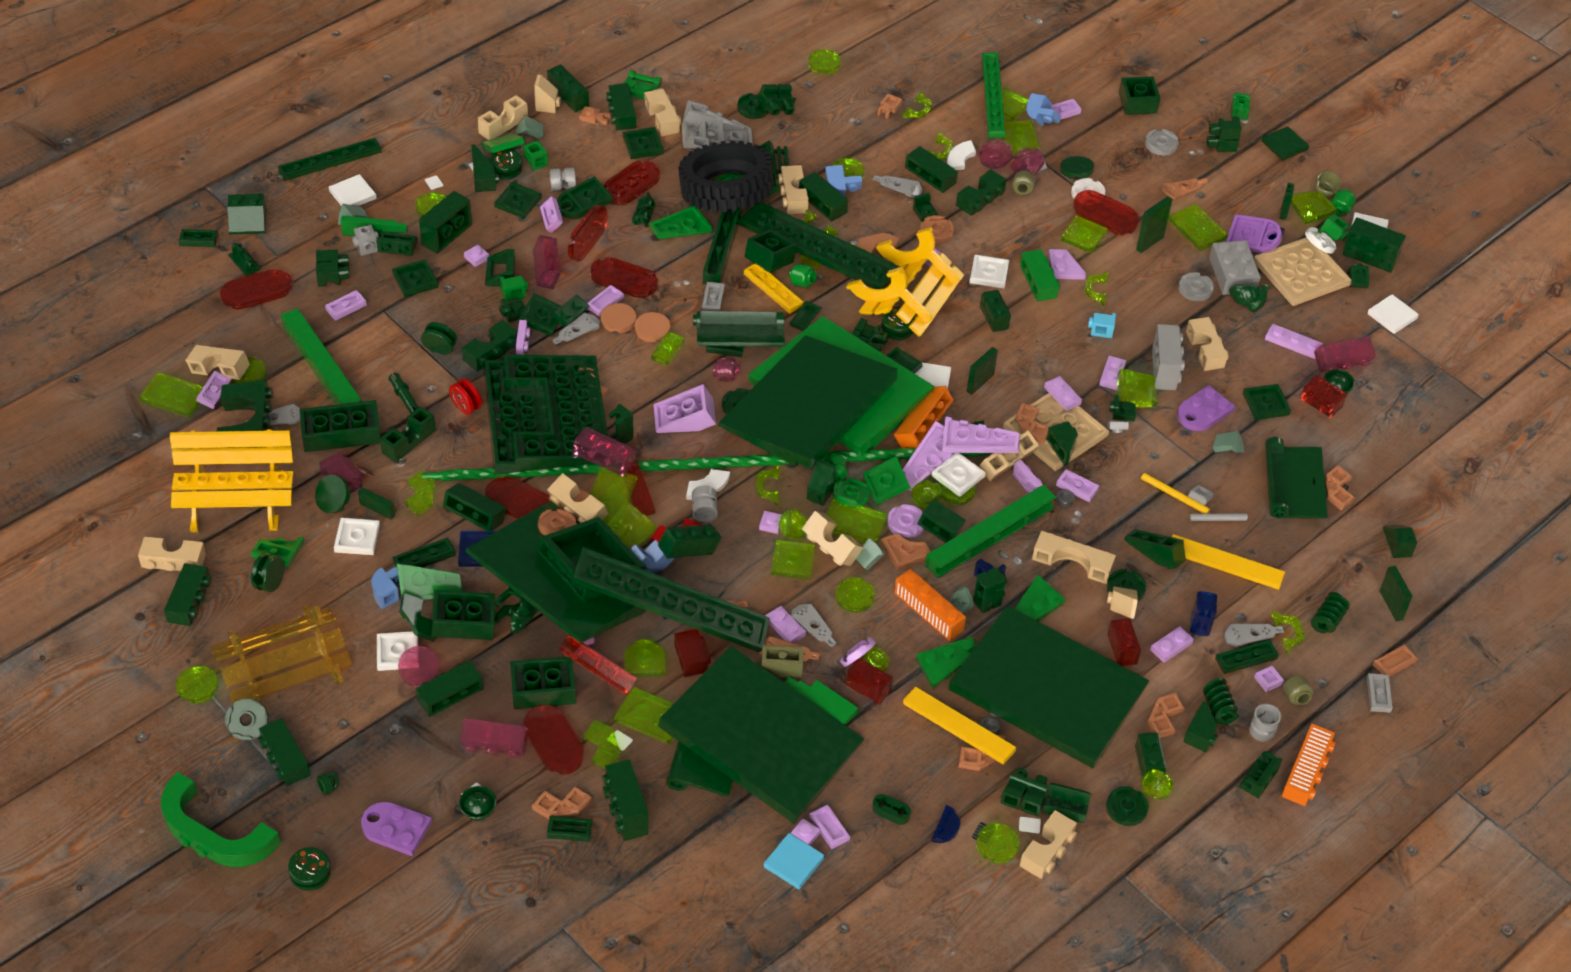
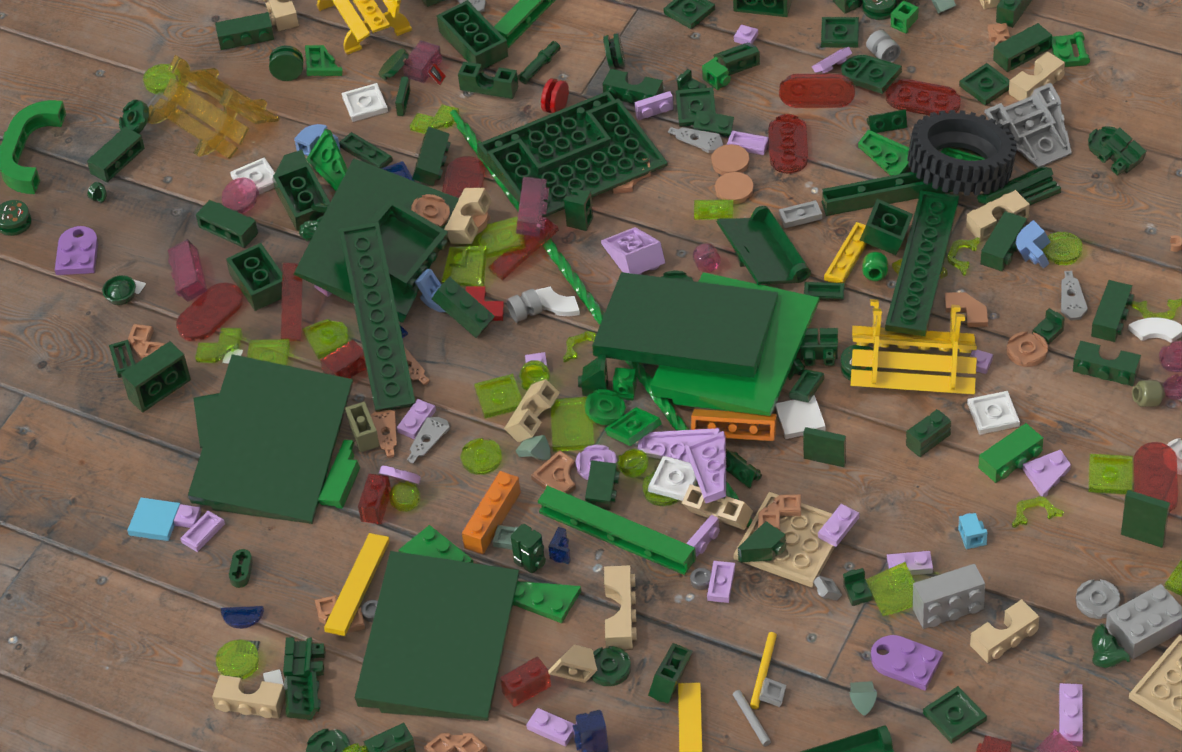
camera: 75 degrees right, 0 degrees up
(546, 262) = (760, 79): clear pink brick -> none

